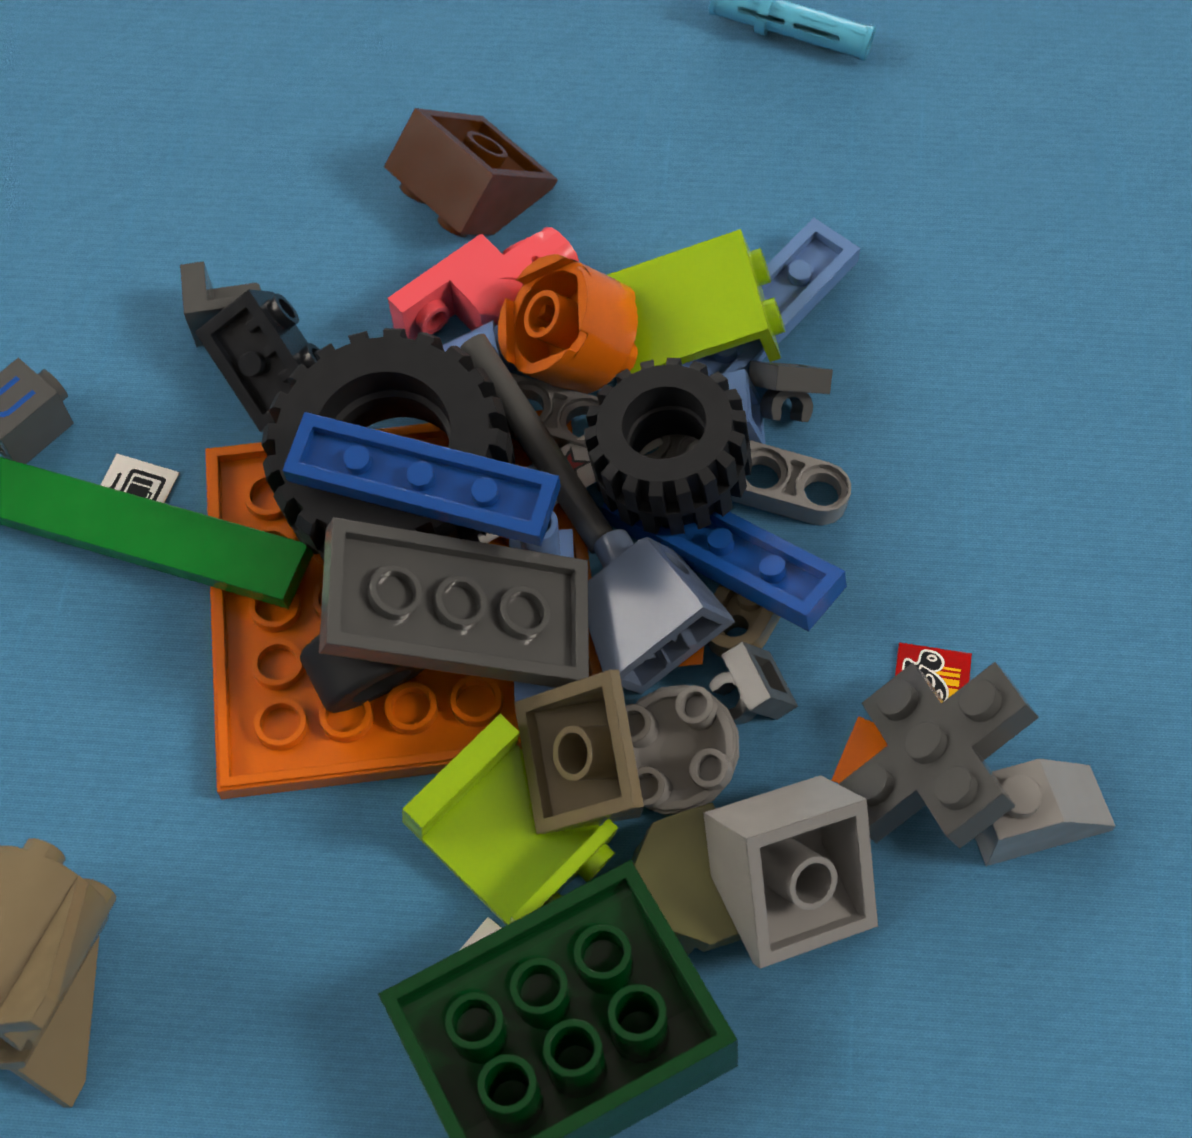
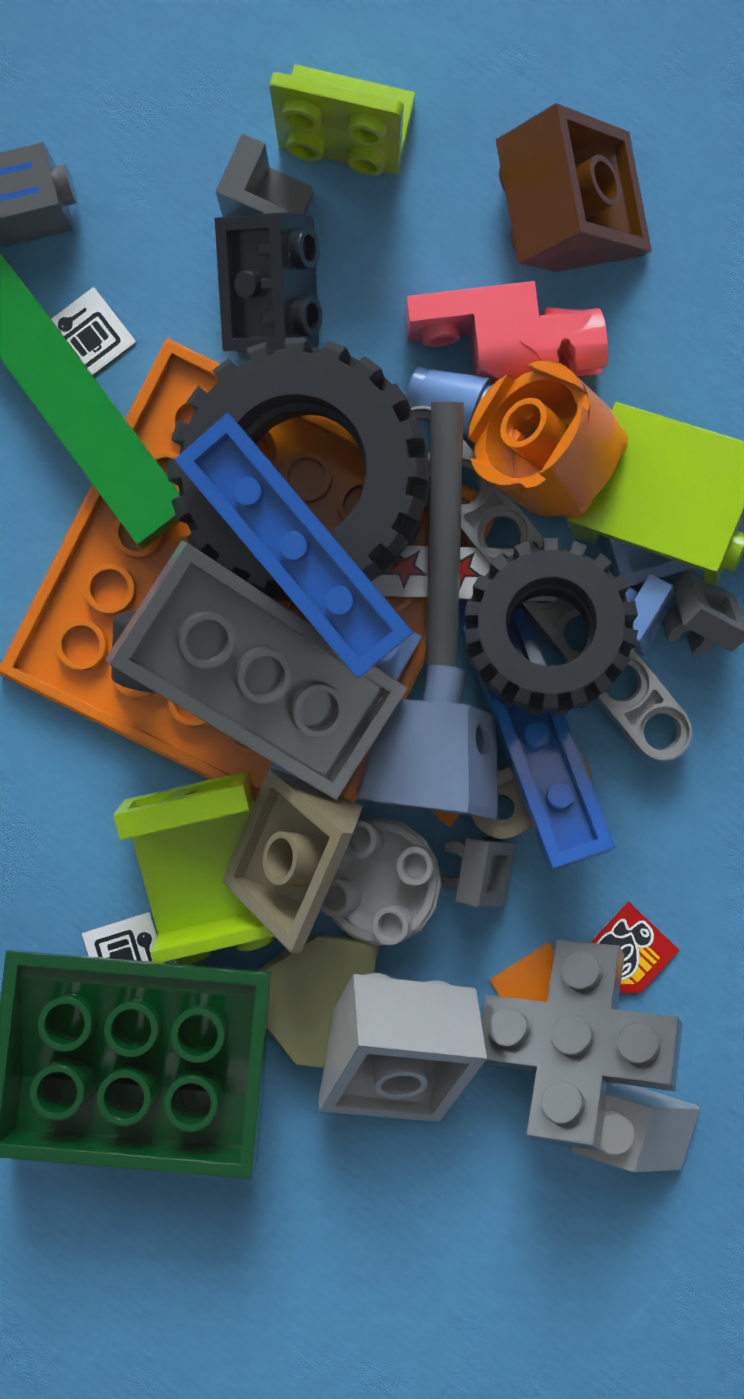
camera: 30 degrees right, 25 degrees up
(253, 218) = (341, 119): none -> lime bracket

